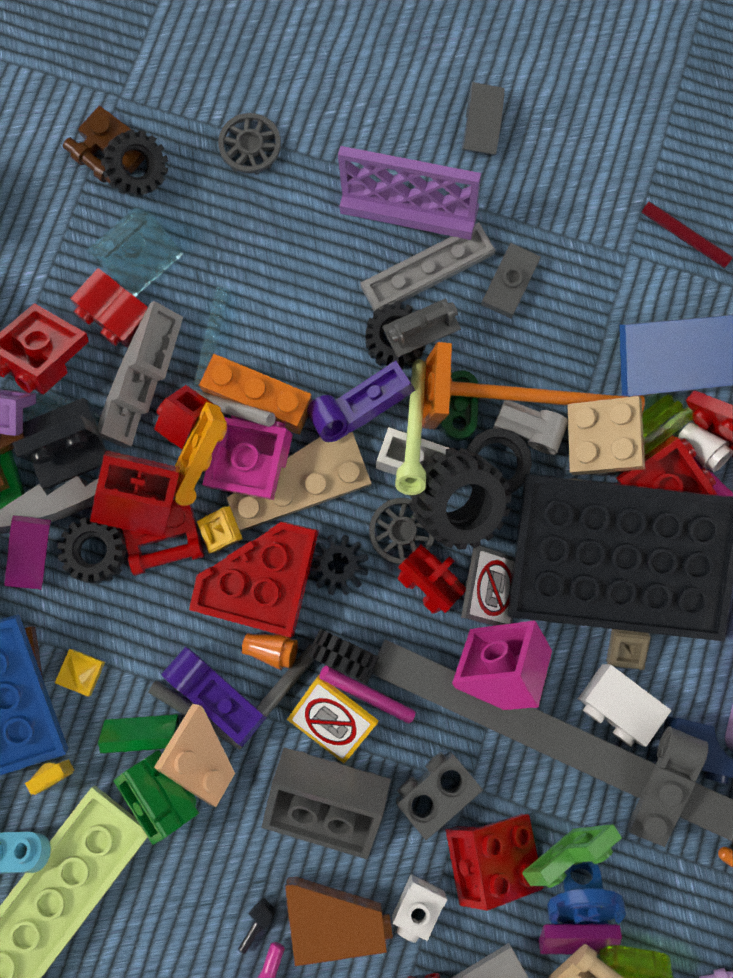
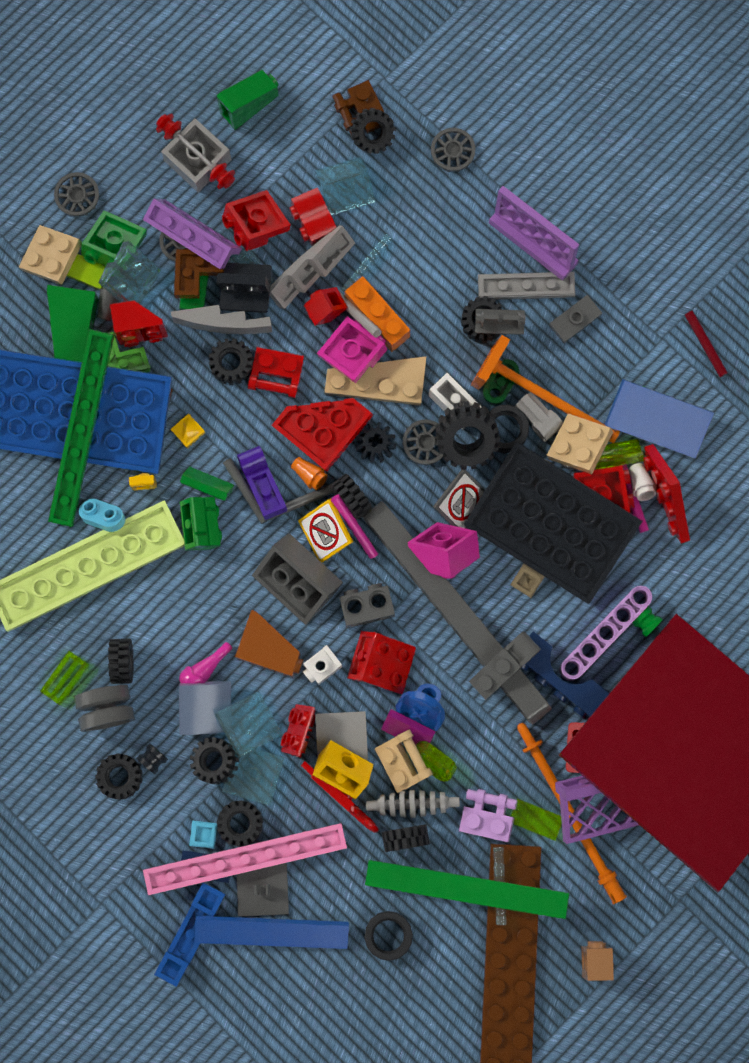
camera: 30 degrees right, 0 degrees up
(27, 552) = (192, 343): magenta tile -> none
(134, 493) = (274, 339): red slope -> none
(197, 758) = (235, 513): light nougat wing -> none
(198, 452) = (323, 332): light orange plate -> none
(219, 529) = (313, 386): yellow tile -> none
(262, 915) = (228, 623): black hand -> none
(360, 405) = (439, 351): dark purple plate -> none
(411, 474) = (444, 405): yellowish green piece -> none
(433, 578) = (428, 477): red hips -> none
(483, 119) = (612, 205): dark grey slope -> none
(576, 847) = (432, 676): bright green plate -> none
(623, 705) = (505, 610): white brick -> none

